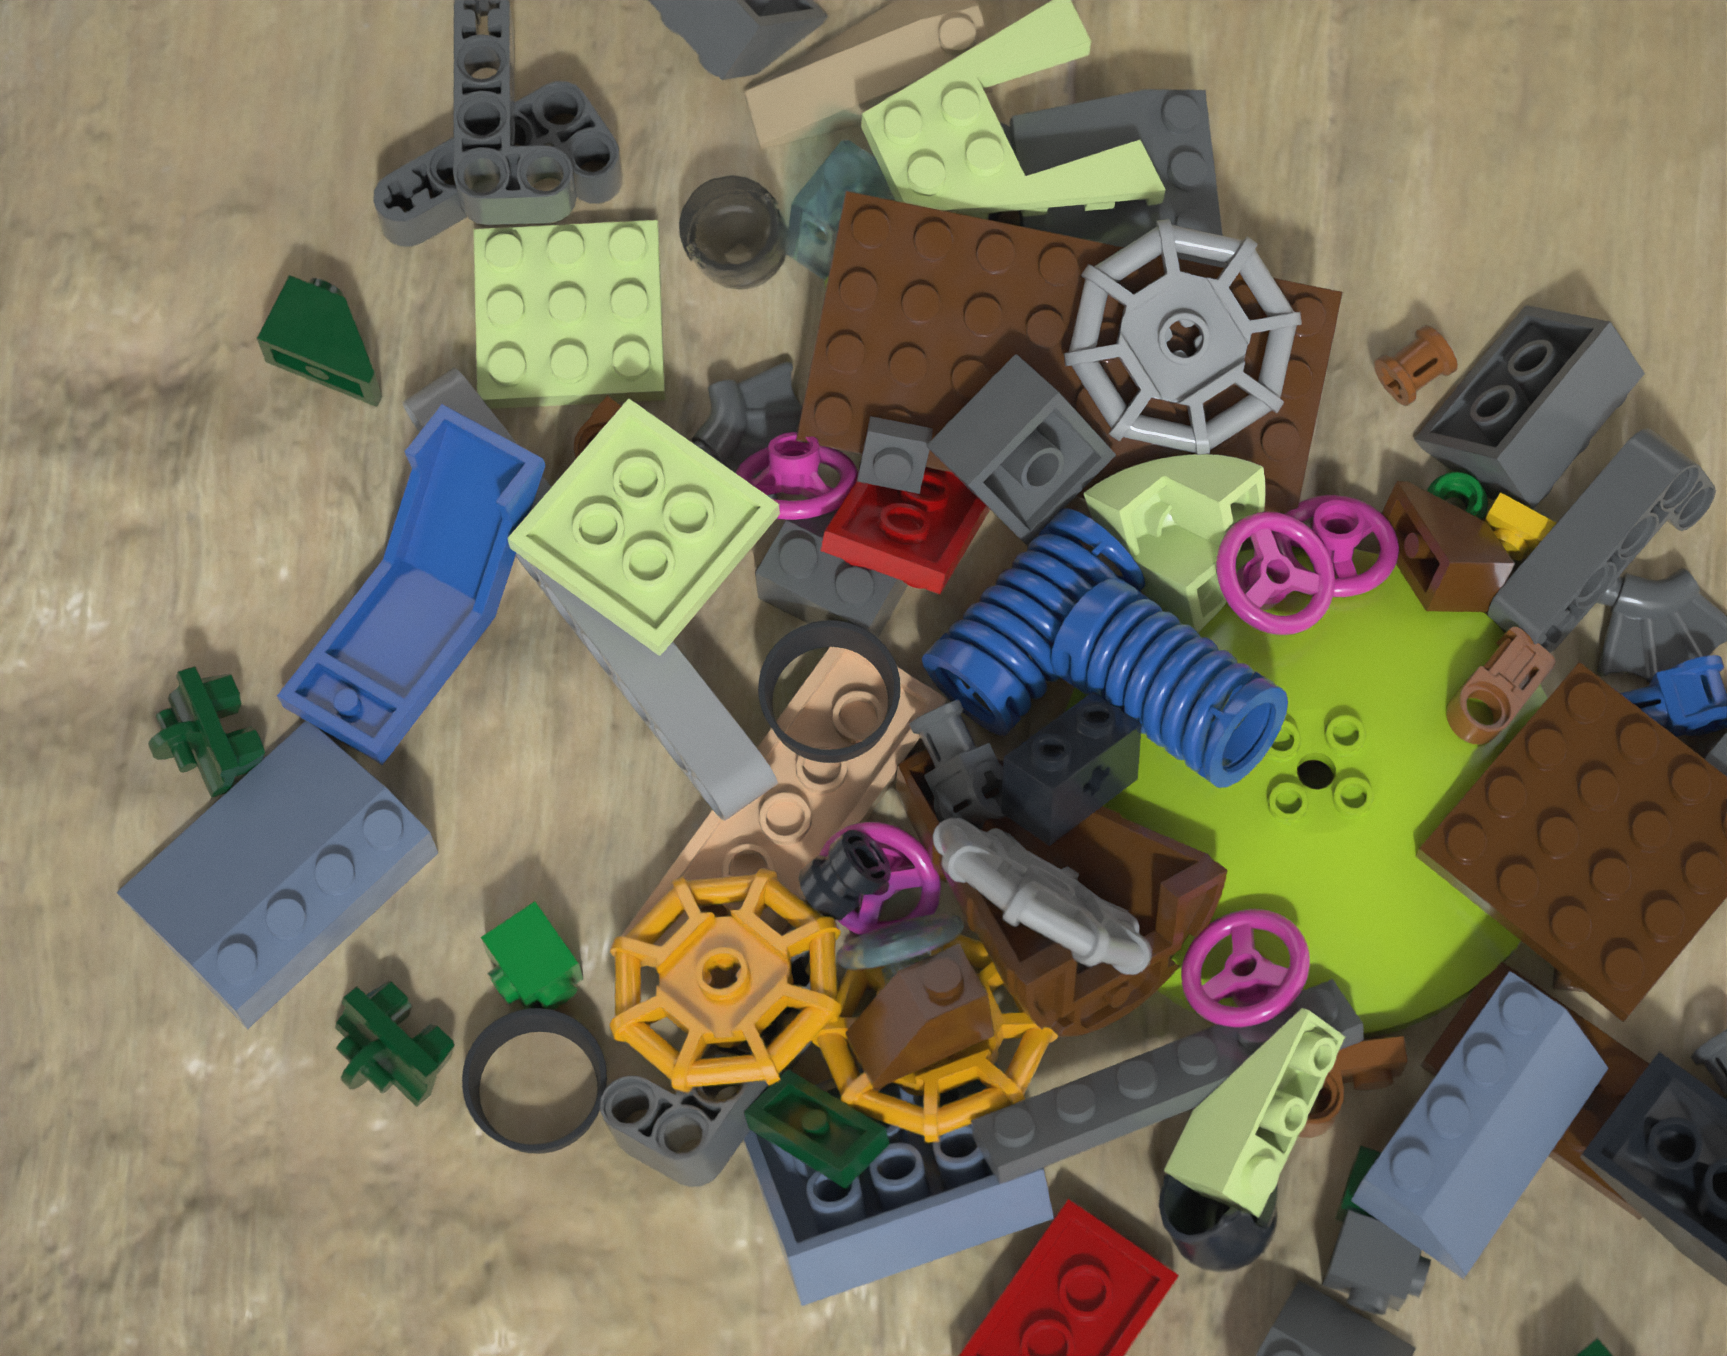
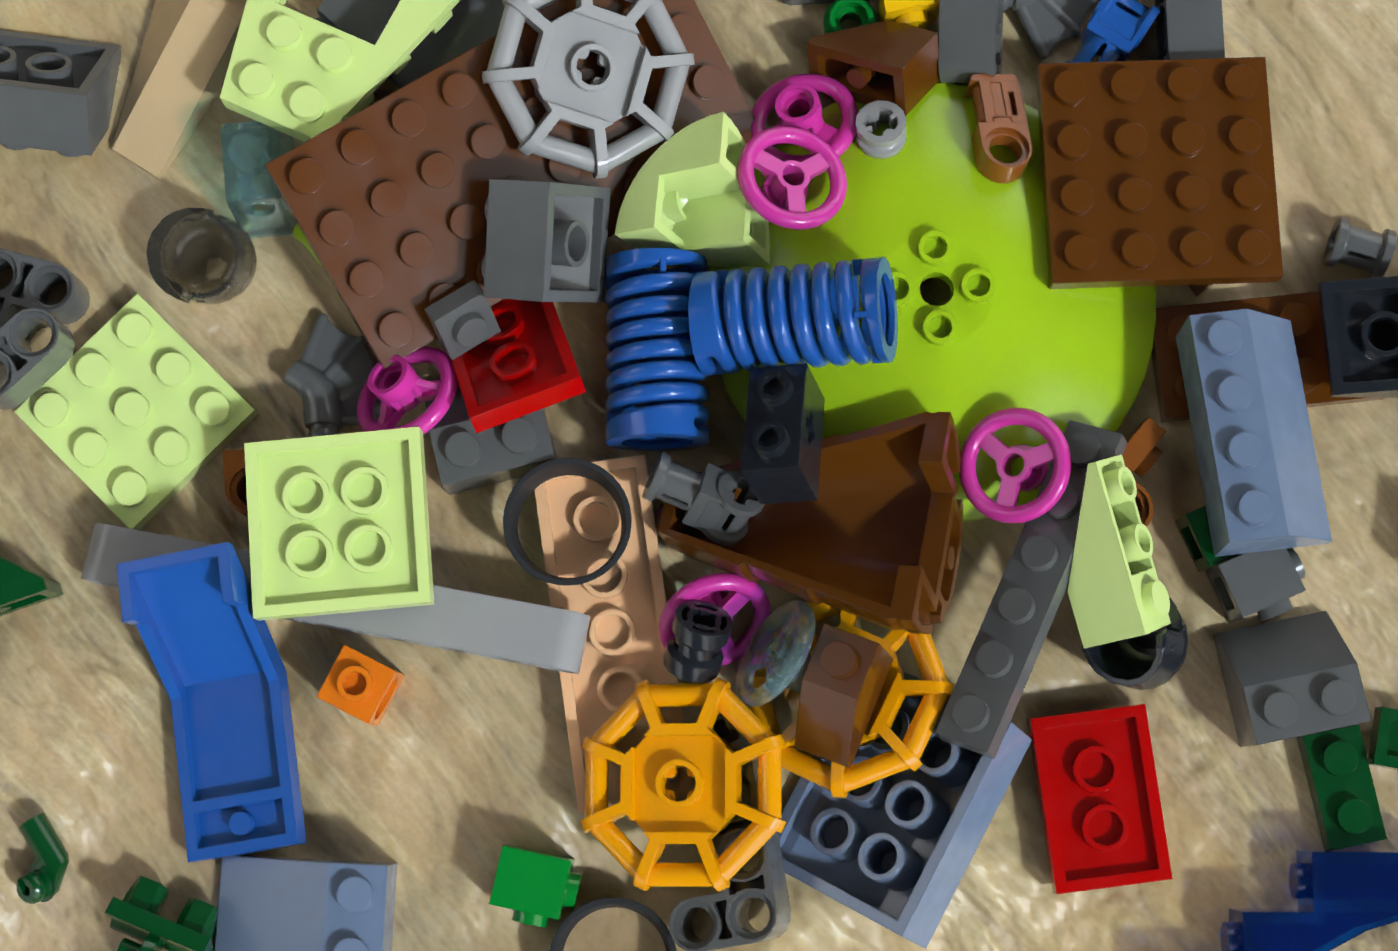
camera: 45 degrees left, 10 degrees up
(172, 602) = (48, 863): none -> dark green arm
(542, 679) = (360, 686): none -> orange brick
(817, 1128) = (835, 827): dark green plate -> none
(1042, 896) = (854, 544): light grey plate -> none
(1395, 588) = (869, 120): none -> light grey bush

